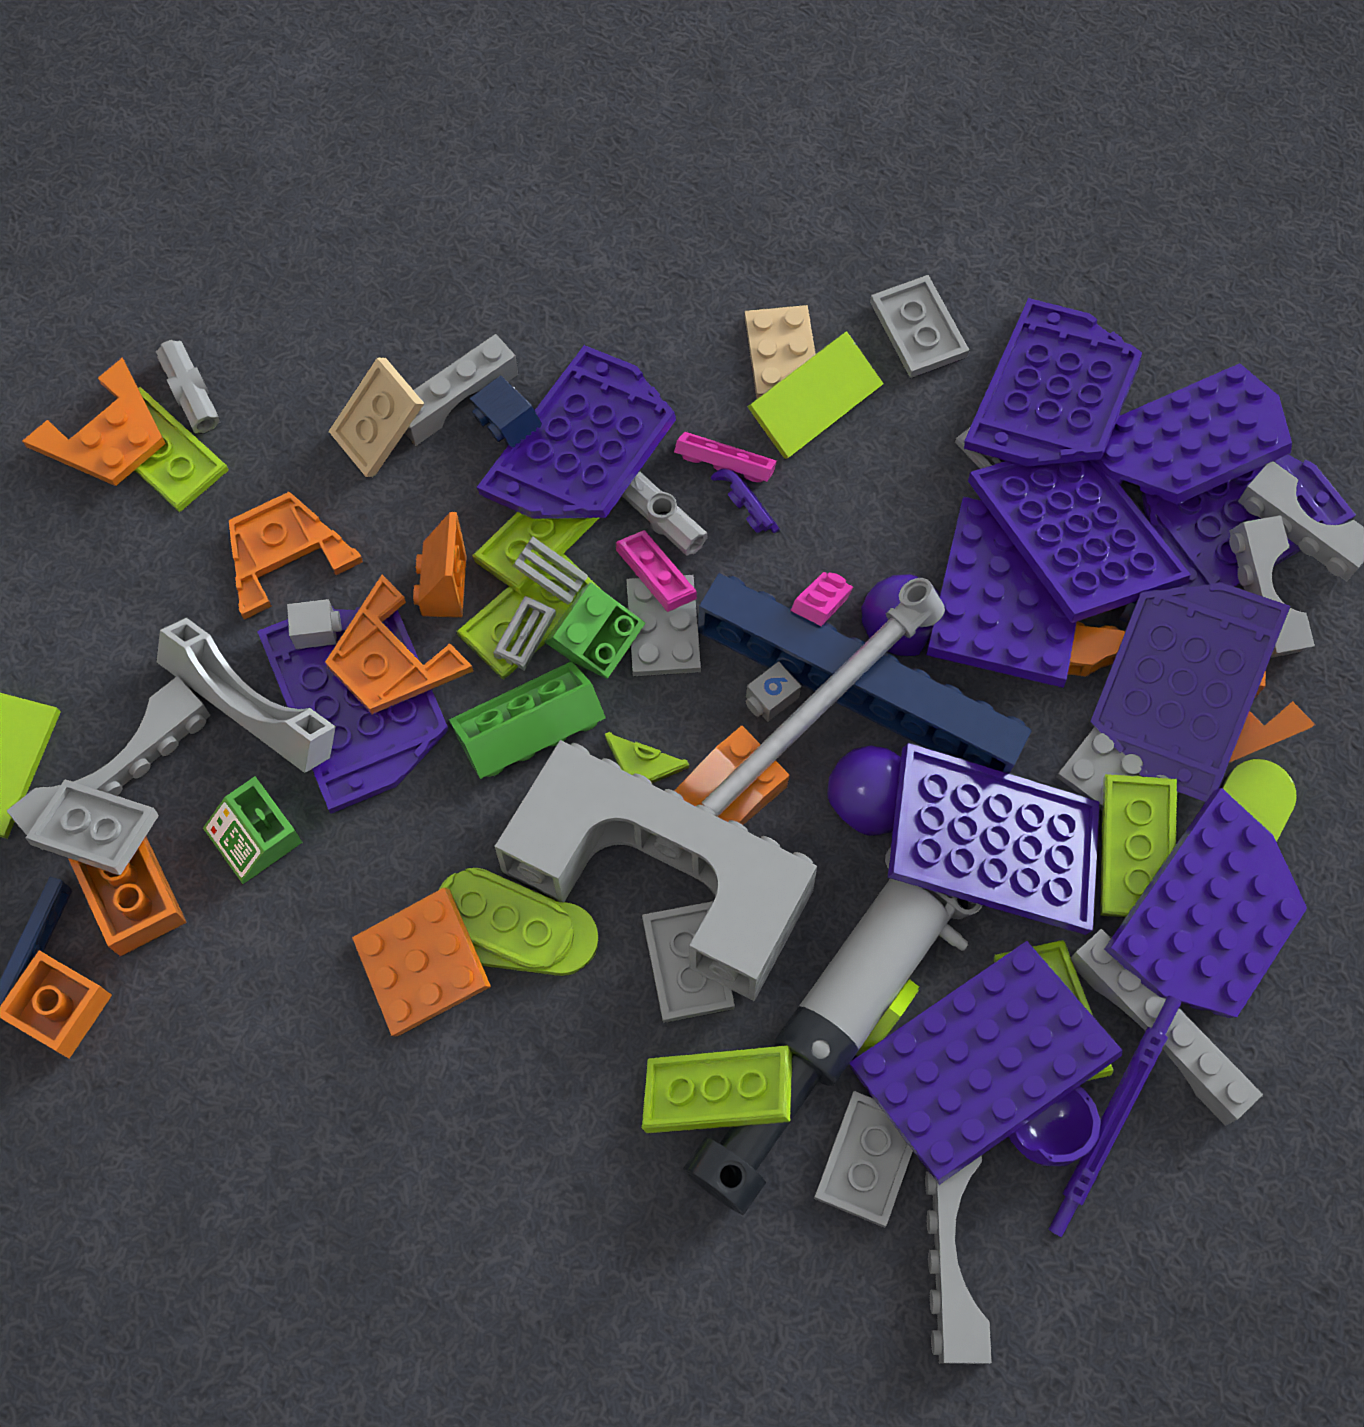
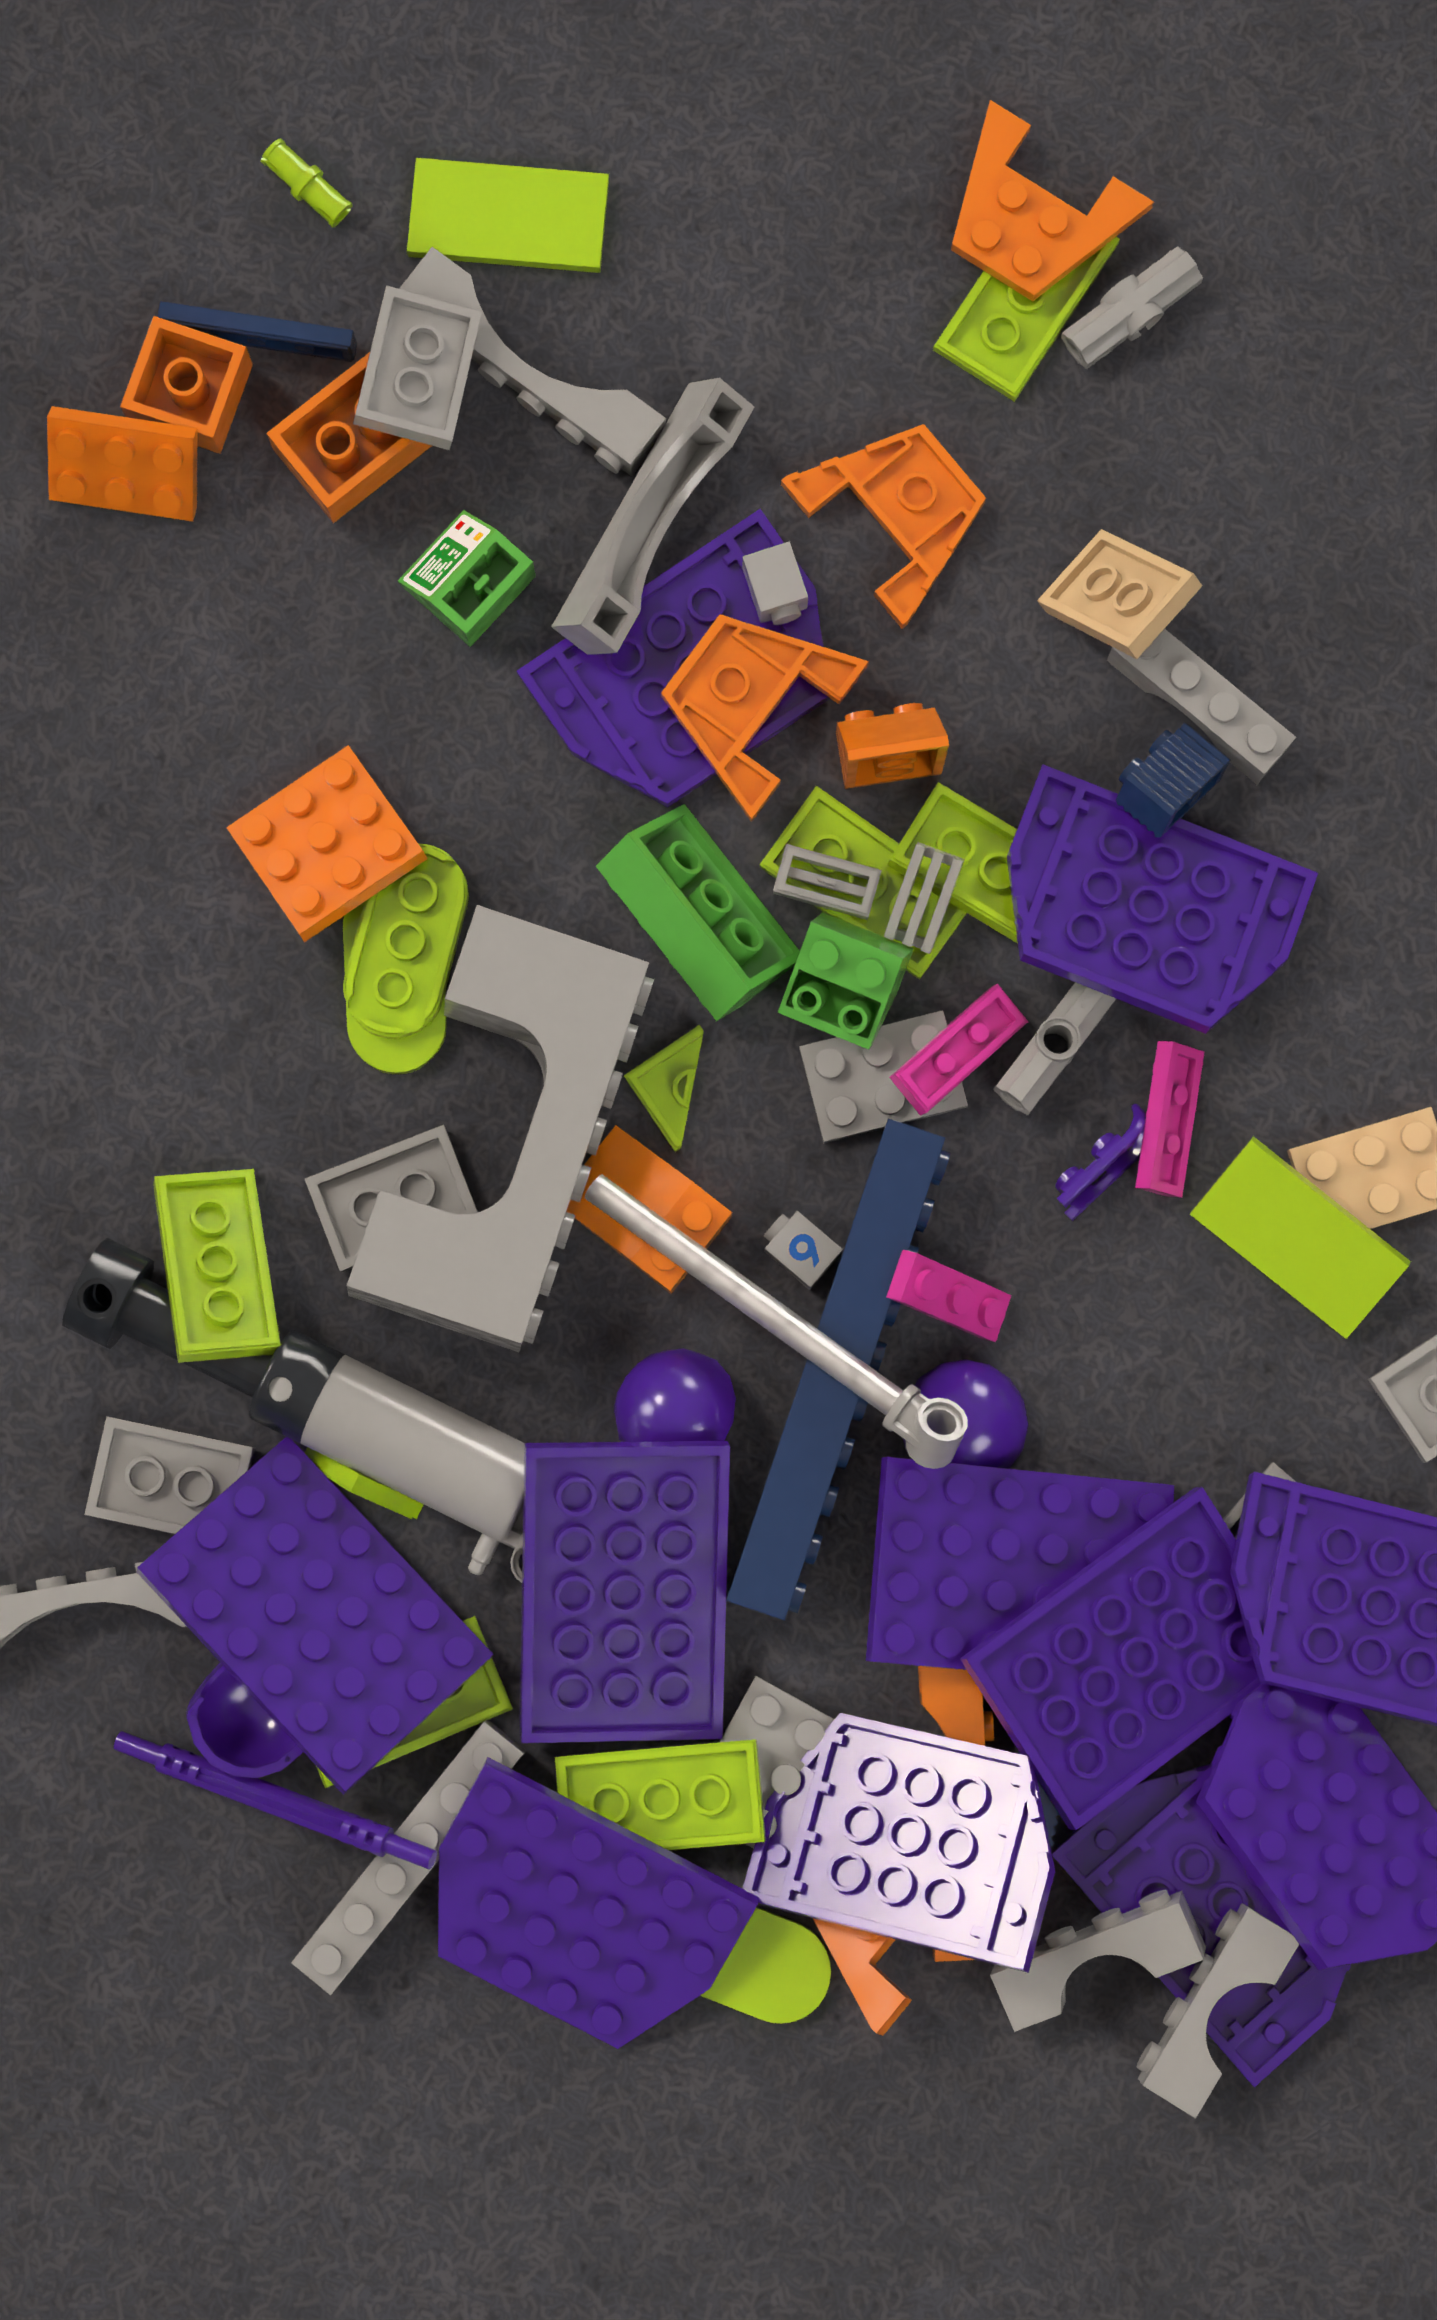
camera: 85 degrees right, 15 degrees up
(98, 1062) = (122, 463): none -> orange plate

